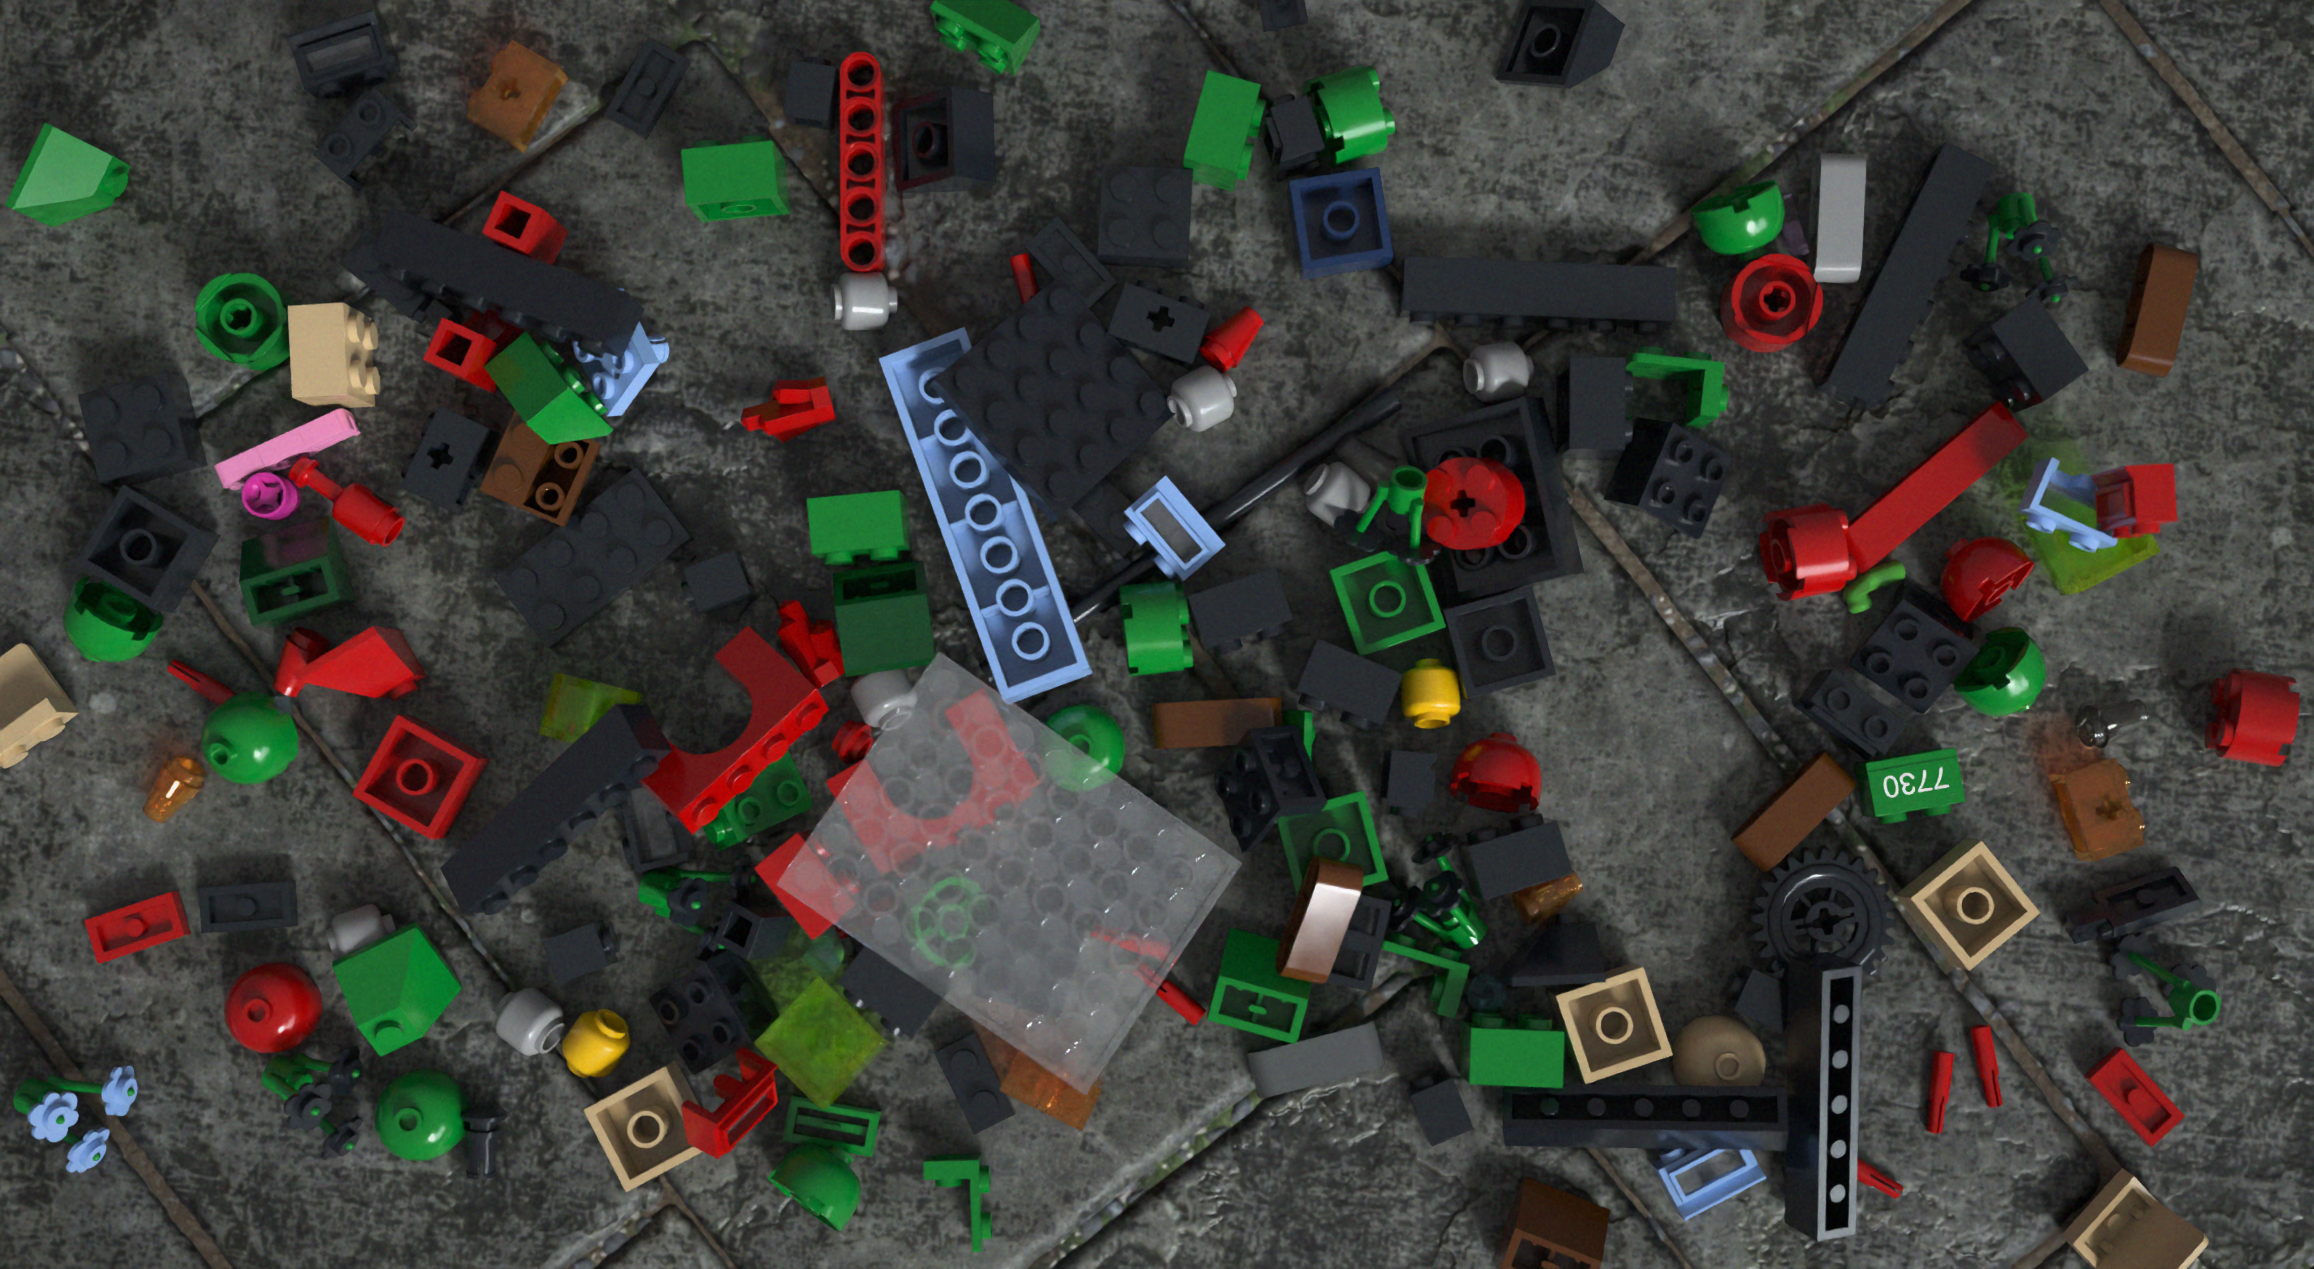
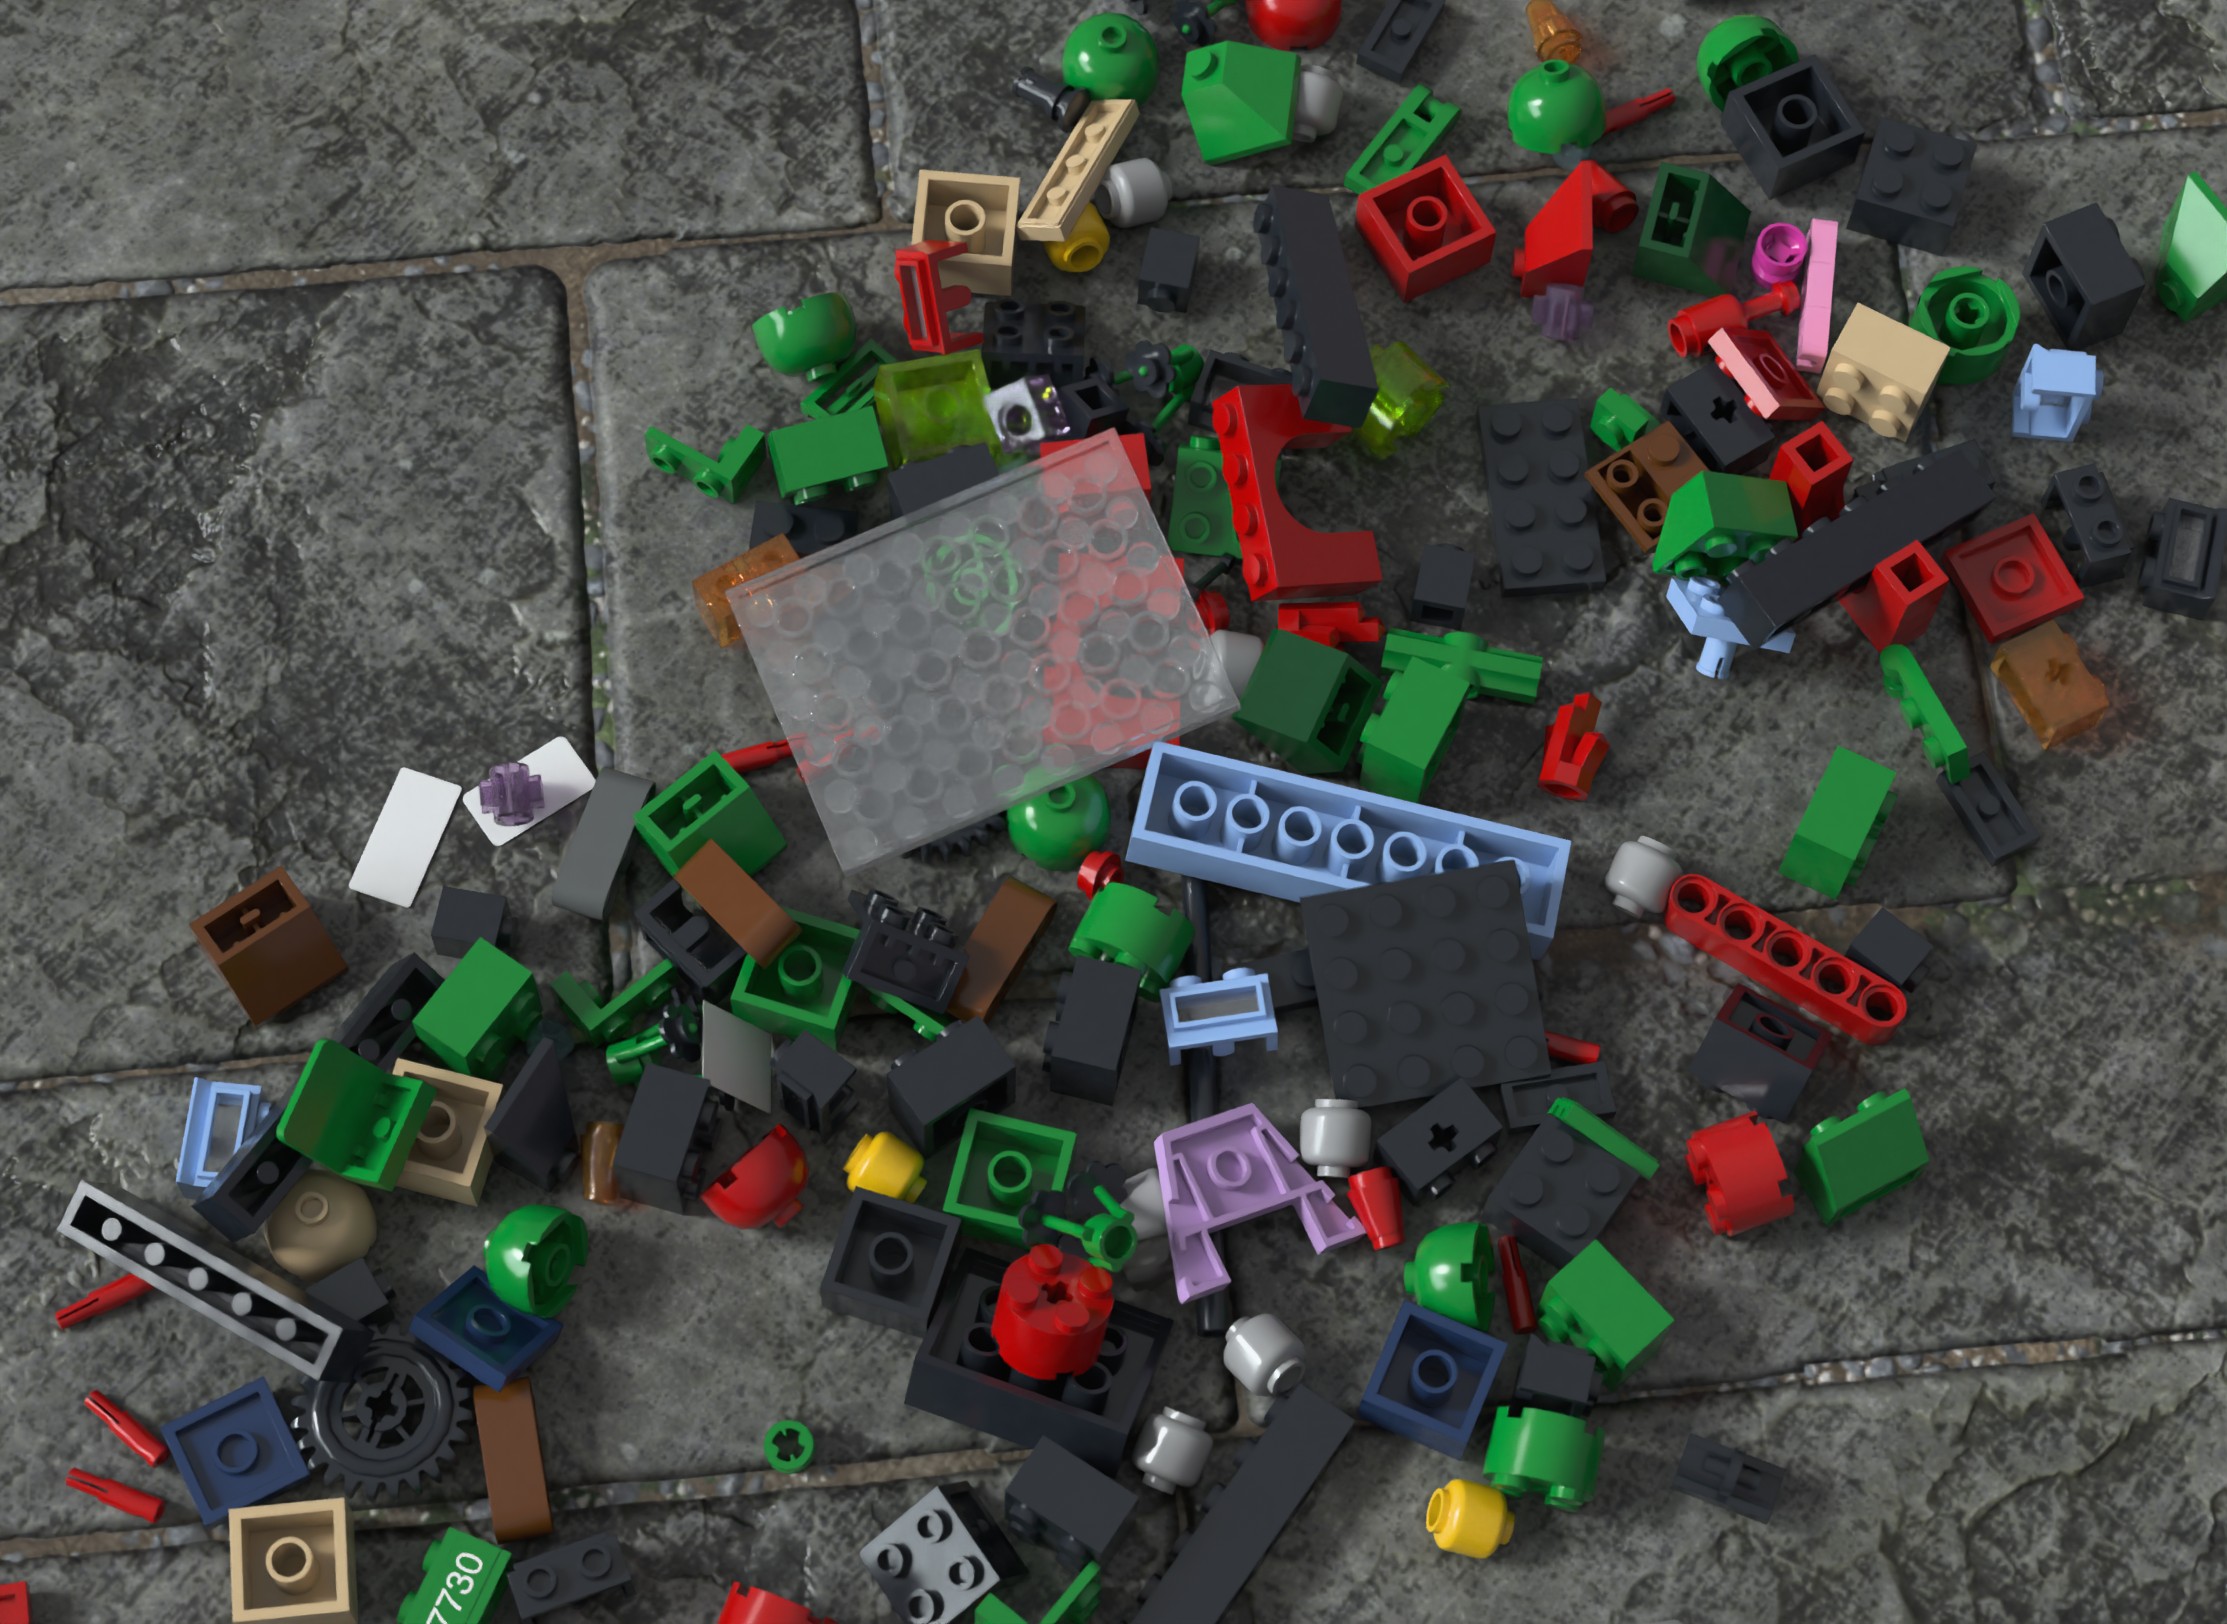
camera: 120 degrees right, 20 degrees down
(147, 250) = (2084, 277): none -> black brick
(267, 218) = (2055, 394): none -> light blue window
(353, 842) = (1403, 140): none -> green plate
(388, 444) = (1766, 375): none -> red plate
(426, 630) = (1562, 311): none -> clear purple gear
(443, 172) = (2012, 578): none -> red plate
(494, 528) = (1620, 420): none -> green bracket
(541, 1073) = (1077, 170): none -> tan tile
(602, 172) = (1923, 710): none -> green plate
(775, 530) = (1470, 658): none -> green piece
(786, 970) = (1008, 411): none -> brick
(853, 756) = (1224, 566): none -> black hinge
(914, 1101) = (827, 454): none -> green brick
(1053, 98) = (1740, 1174): none -> red brick
(1087, 209) = (1604, 1136): none -> green tile
(1110, 686) = (1098, 871): none -> red plate
(1225, 213) = (1516, 1287): none -> red piece
(1255, 253) = (1453, 1274): none -> green cylinder
(1286, 452) = (1228, 1174): none -> lavender wing
(1304, 1144) = (563, 781): none -> white sticker
(1325, 1150) = (511, 794): none -> clear purple gear
(1391, 351) = (1264, 1355): none -> light grey head
(1397, 1208) = (405, 837): none -> white sticker
(1417, 145) = (1469, 1518): none -> yellow head
(1421, 850) = (736, 1057): none -> white sticker
(1649, 623) = (773, 1452): none -> green bush
(1654, 893) = (534, 1256): none -> green cylinder
(1659, 1075) = (354, 1116): none -> green bracket
(1723, 890) = (483, 1332): none -> dark blue plate
(1912, 1002) = (236, 1452): none -> dark blue plate

